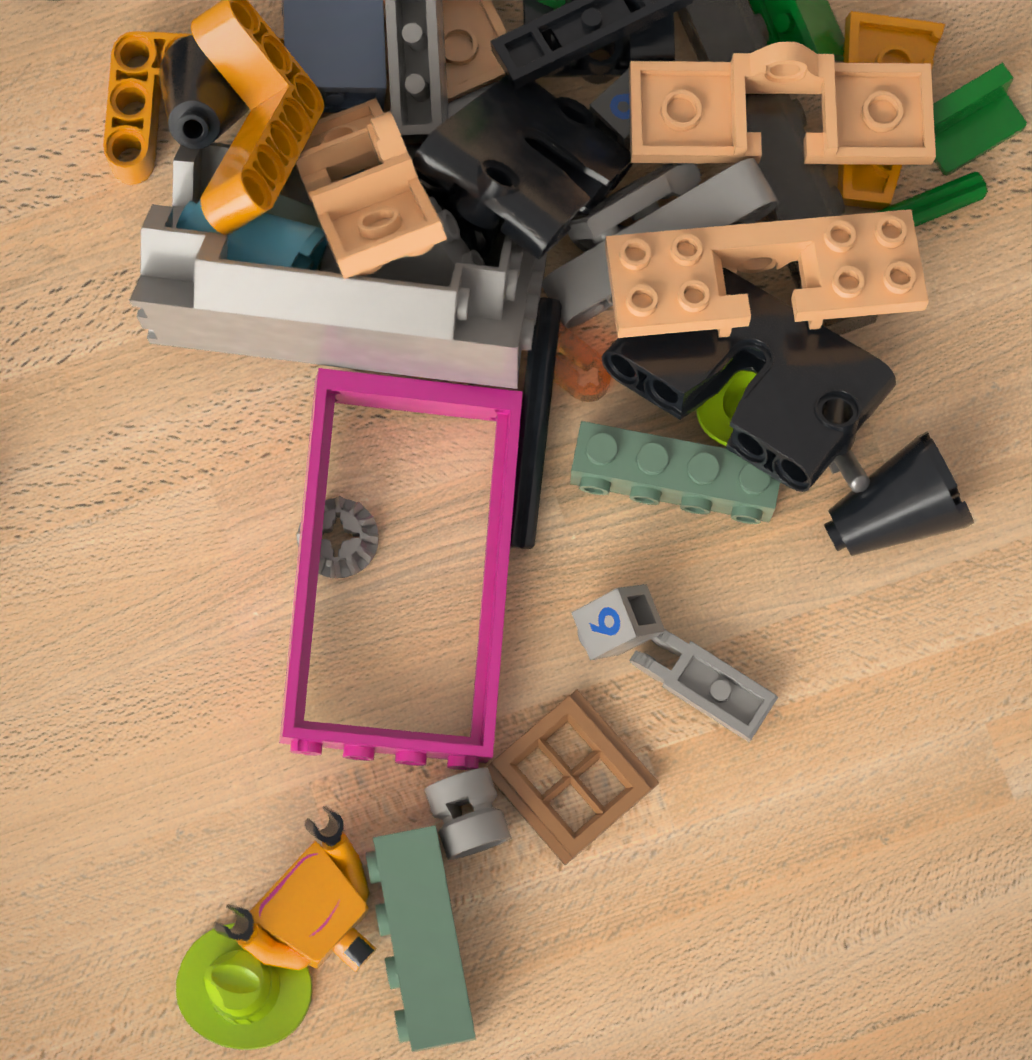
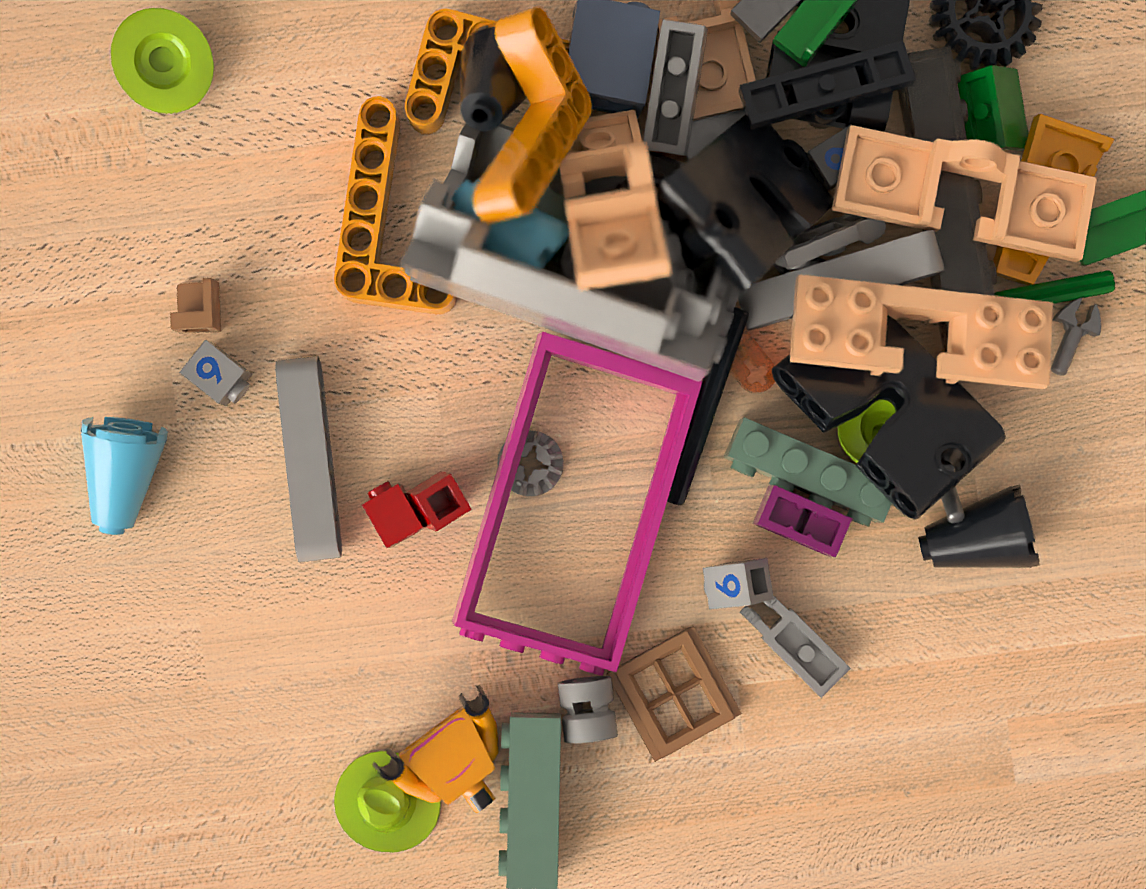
camera: 10 degrees right, 10 degrees up
(66, 587) = (308, 459): none -> light grey beam
(91, 293) = (374, 220): none -> light orange beam
(182, 629) = (392, 514): none -> red brick
(234, 599) = (438, 501): none -> red brick
(678, 531) = (802, 521): none -> magenta brick
(953, 253) = (1073, 333): none -> flat silver bar

